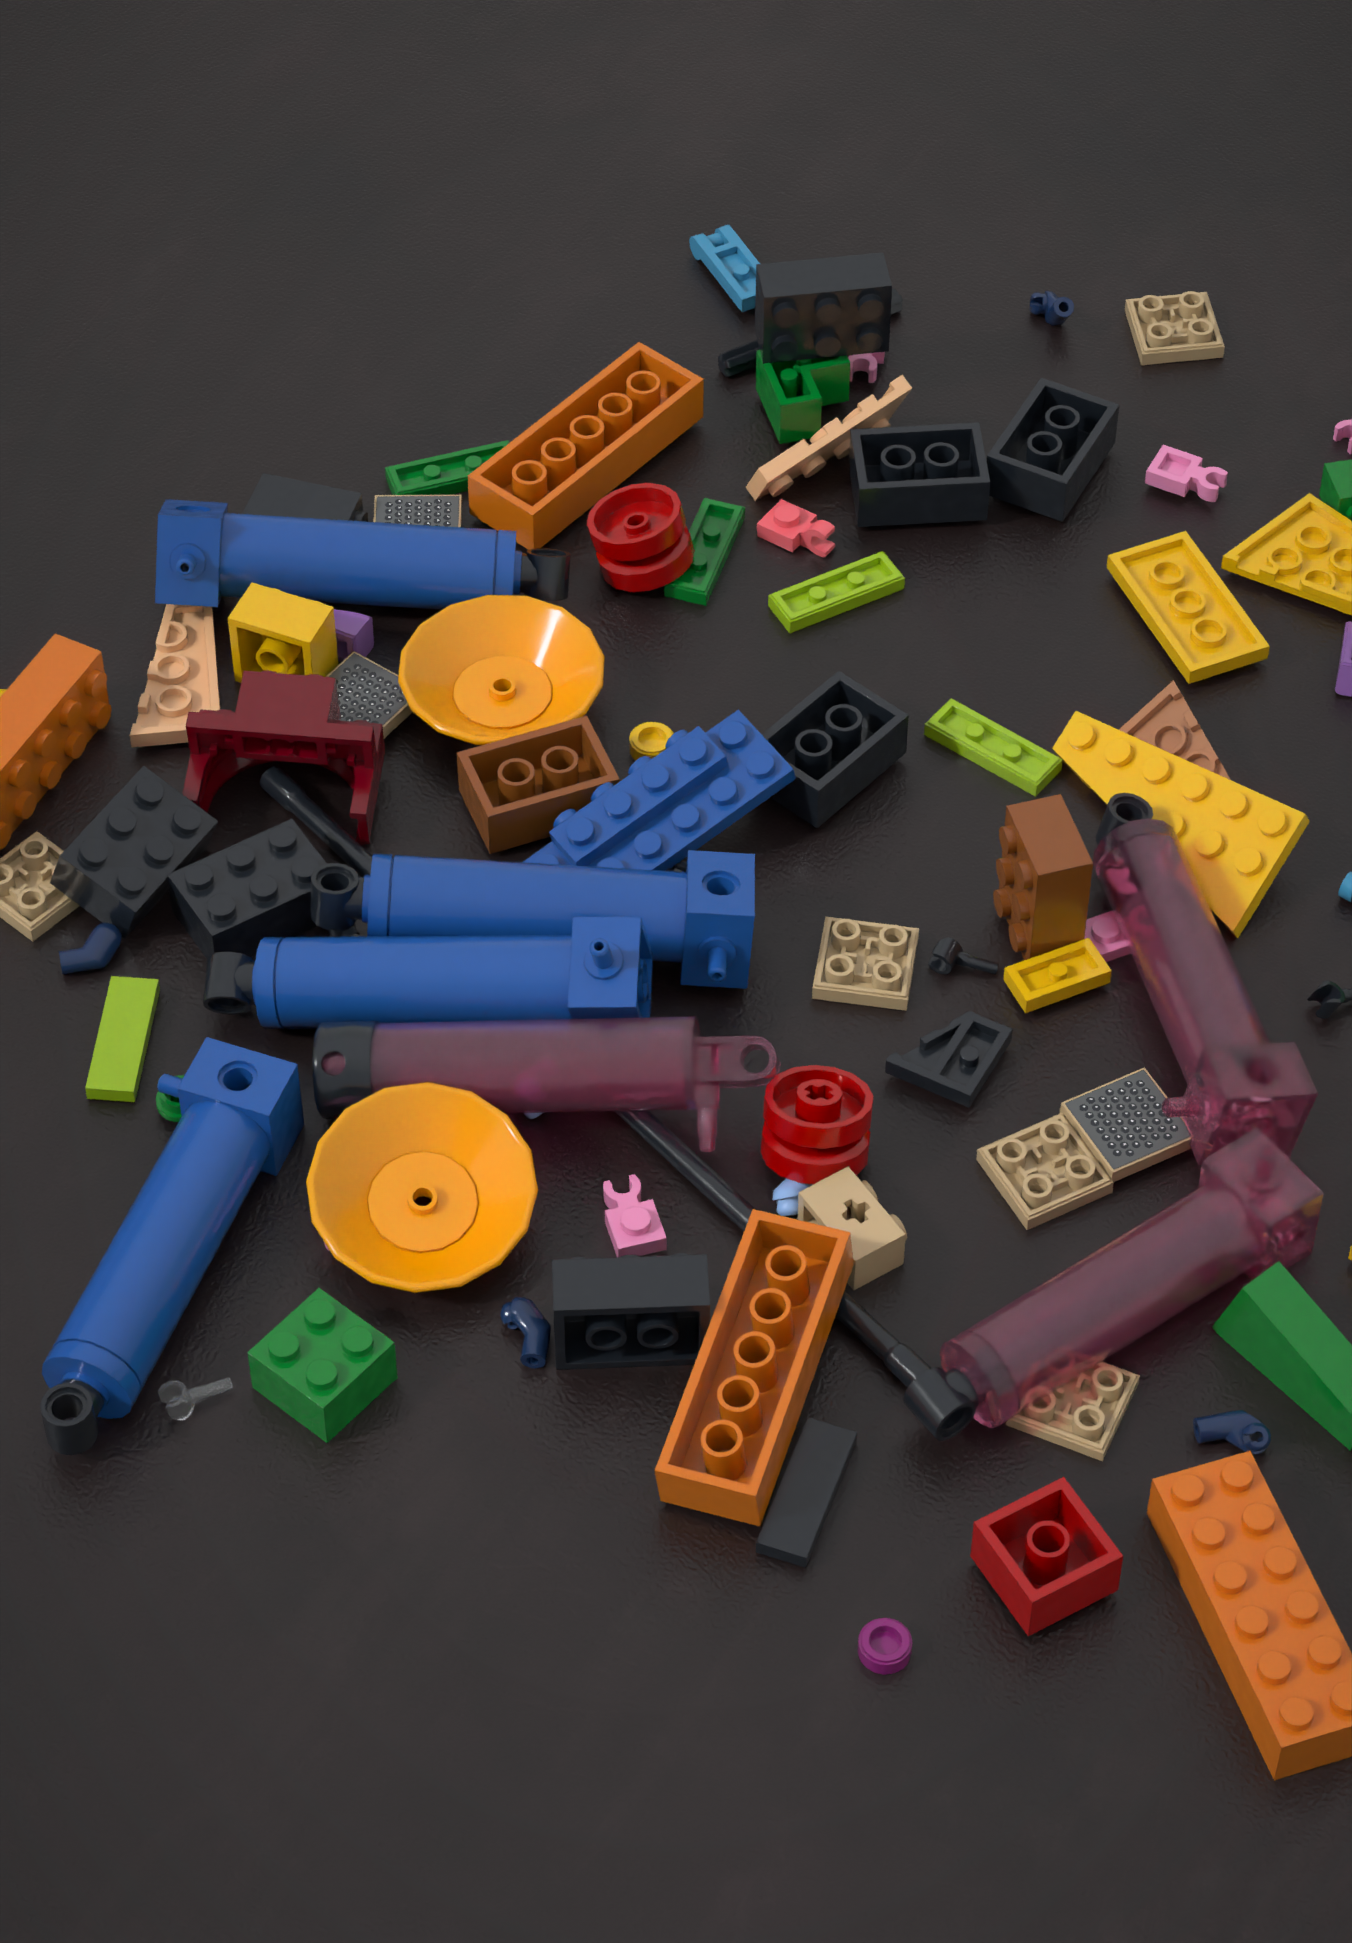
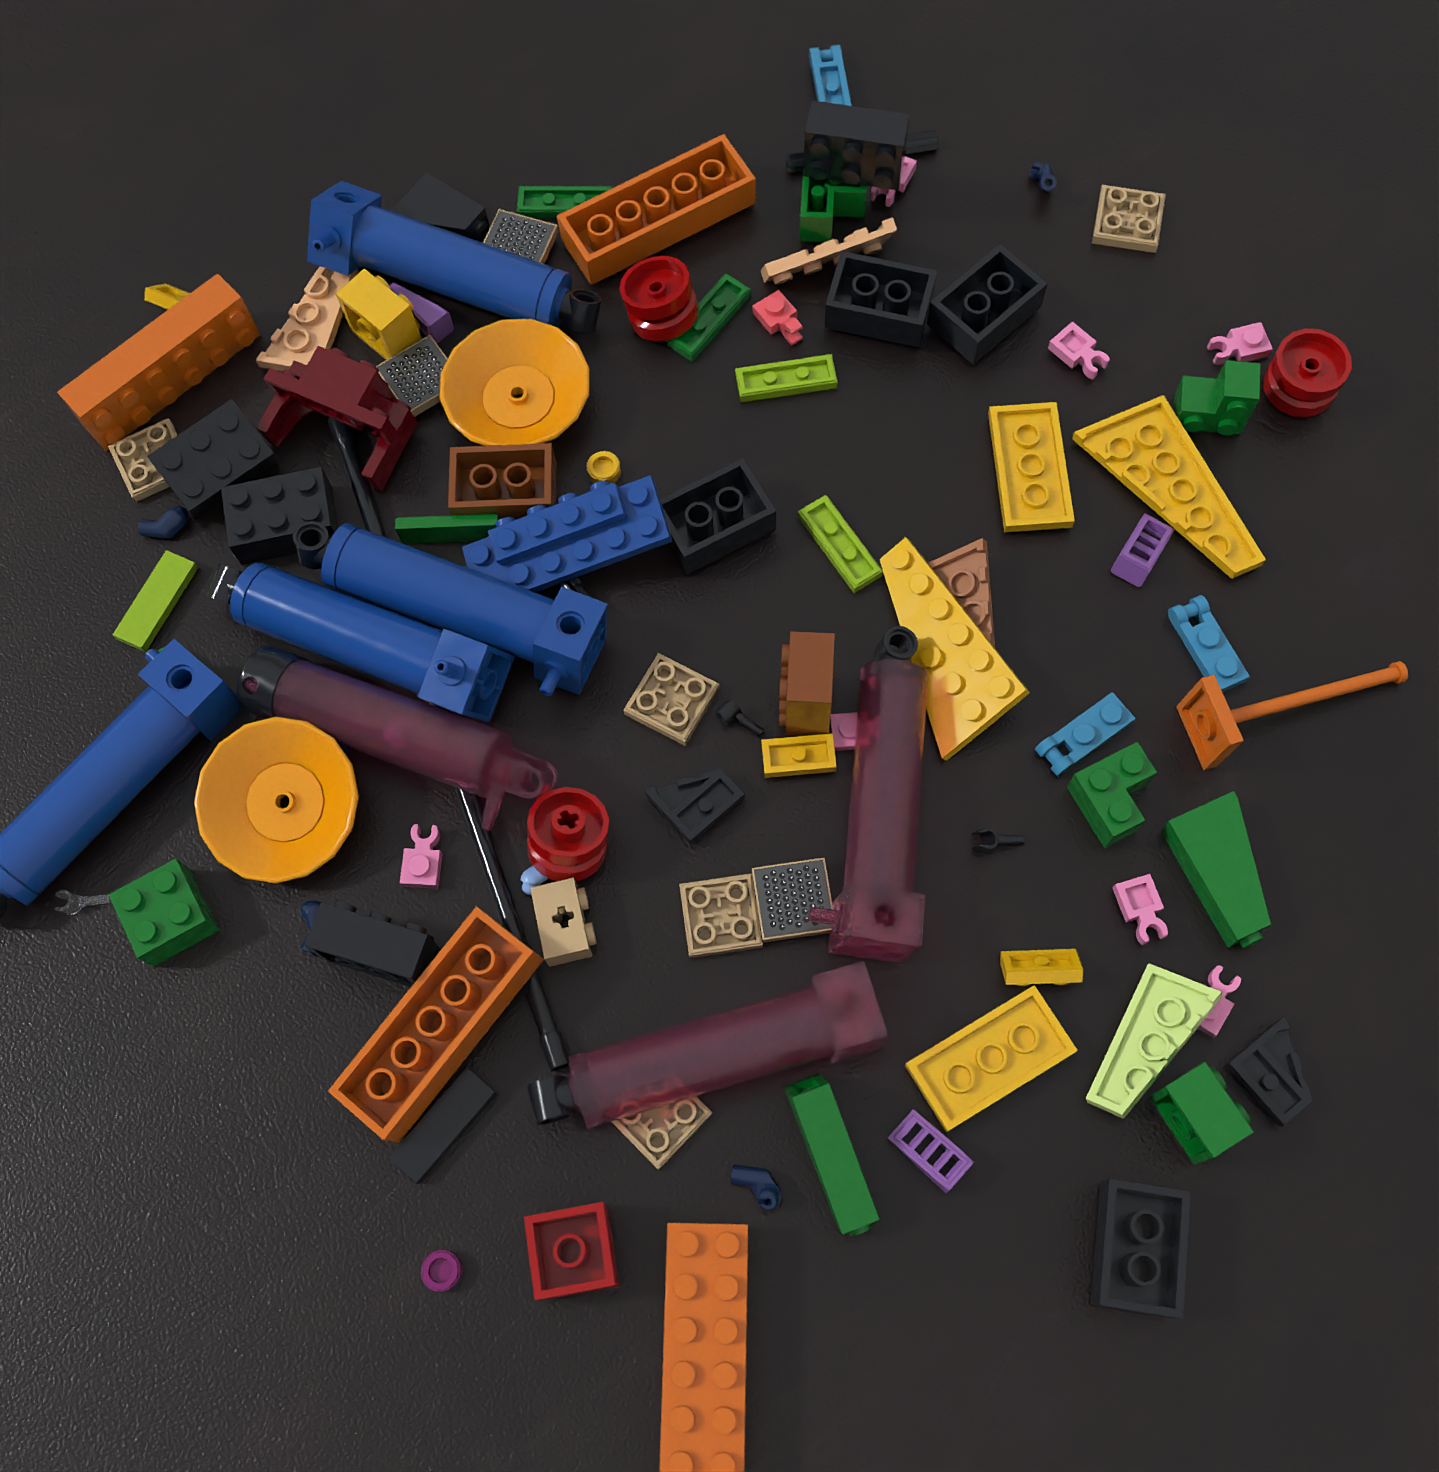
camera: 25 degrees right, 20 degrees up
(507, 843) = (444, 528): none -> green tile

